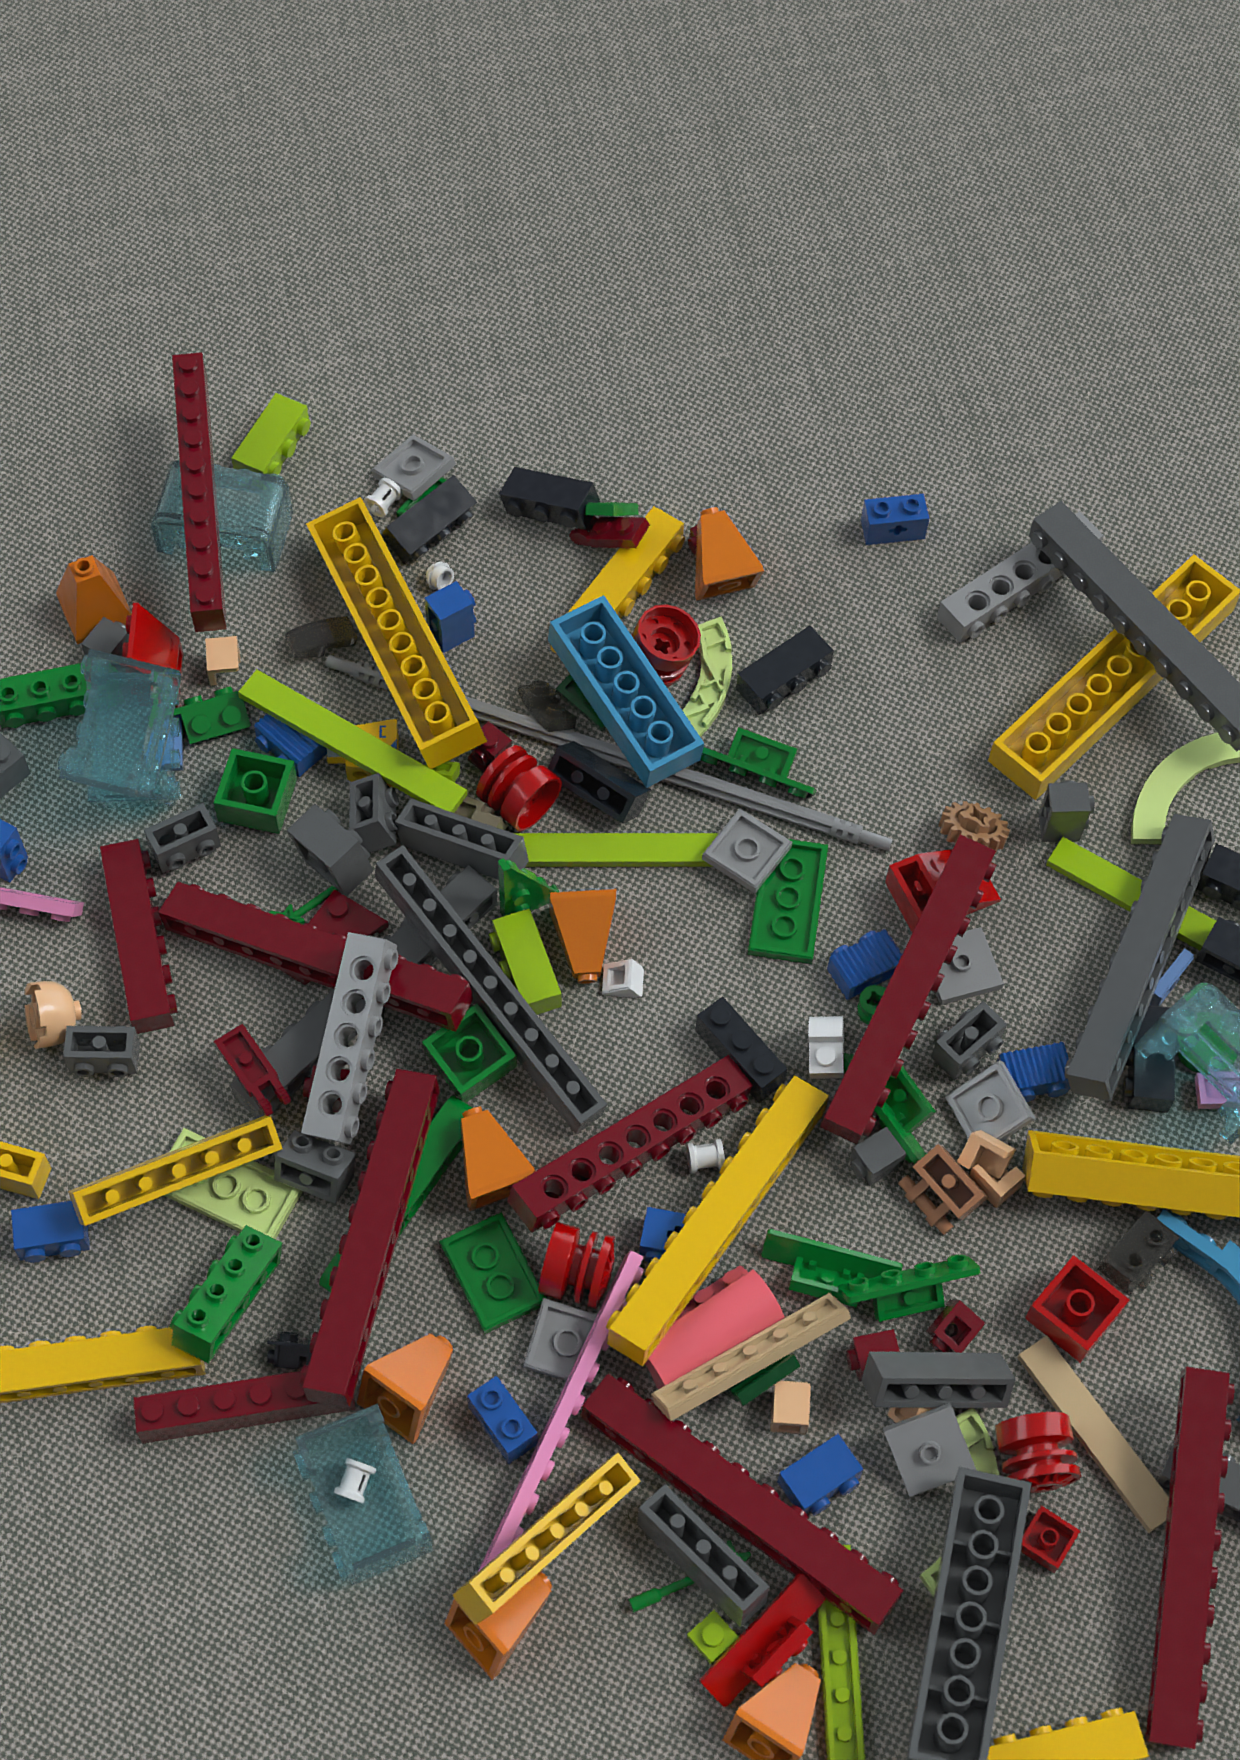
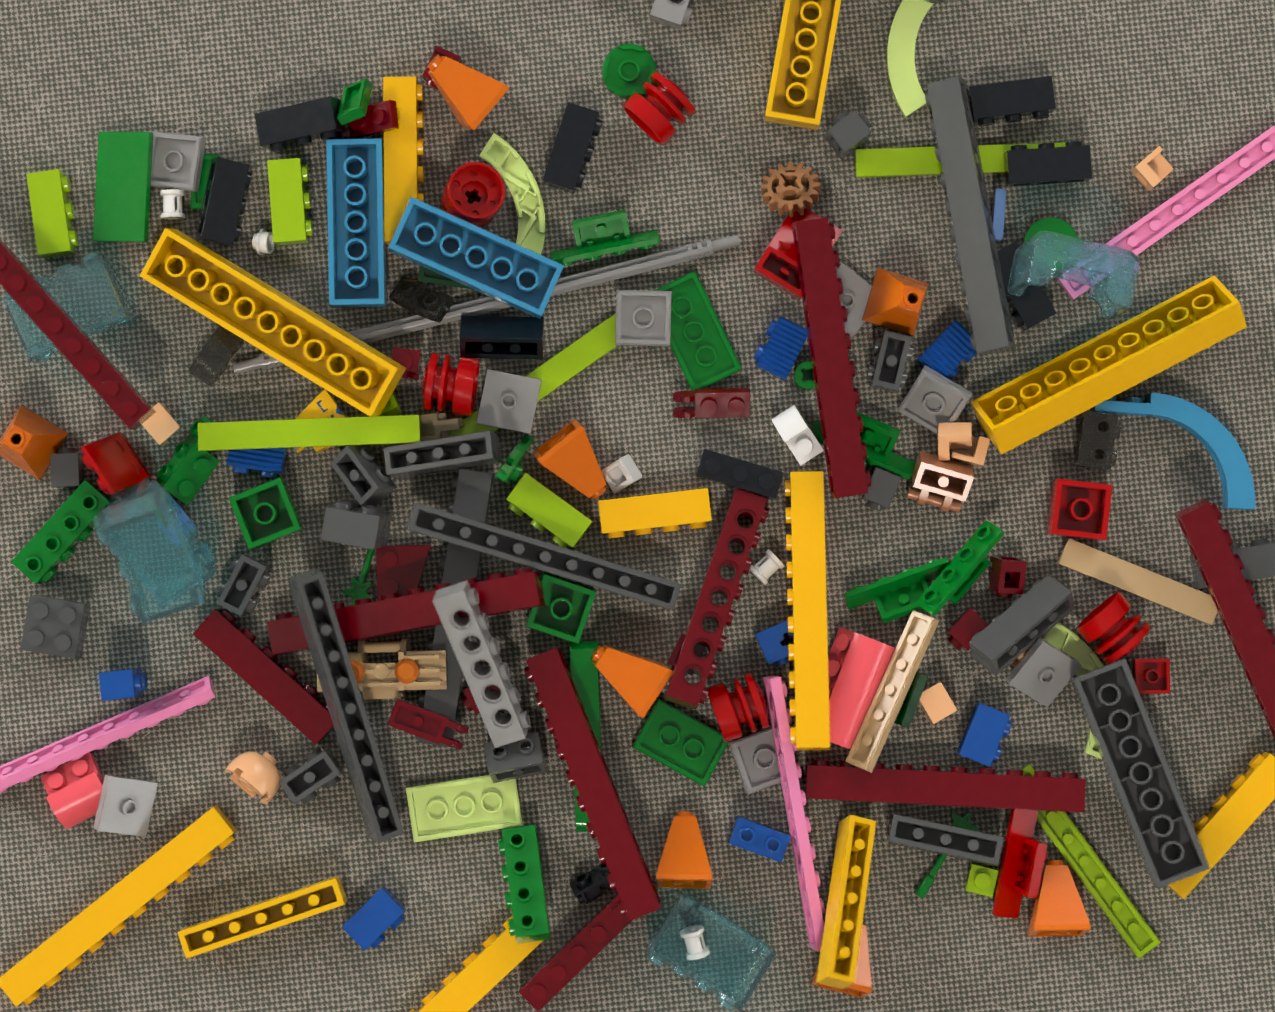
camera: 30 degrees left, 25 degrees up
(175, 1170) = (431, 829): yellow brick -> none
(186, 997) = (345, 705): none -> dark grey brick
(237, 1003) = (388, 680): none -> tan piece
(350, 459) = (123, 187): none -> green tile
(450, 616) = (301, 277): blue brick -> none
(490, 555) = (289, 201): none -> lime brick
(516, 627) = (356, 223): none -> dark azure brick
(562, 842) = (509, 401): none -> light grey plate
(630, 1030) = (655, 511): none -> yellow brick
(763, 972) = (713, 403): none -> dark red hinge
(886, 645) = (627, 69): none -> green tile
(893, 681) = (659, 108): none -> red wheel
(1016, 991) = (895, 301): none -> orange slope

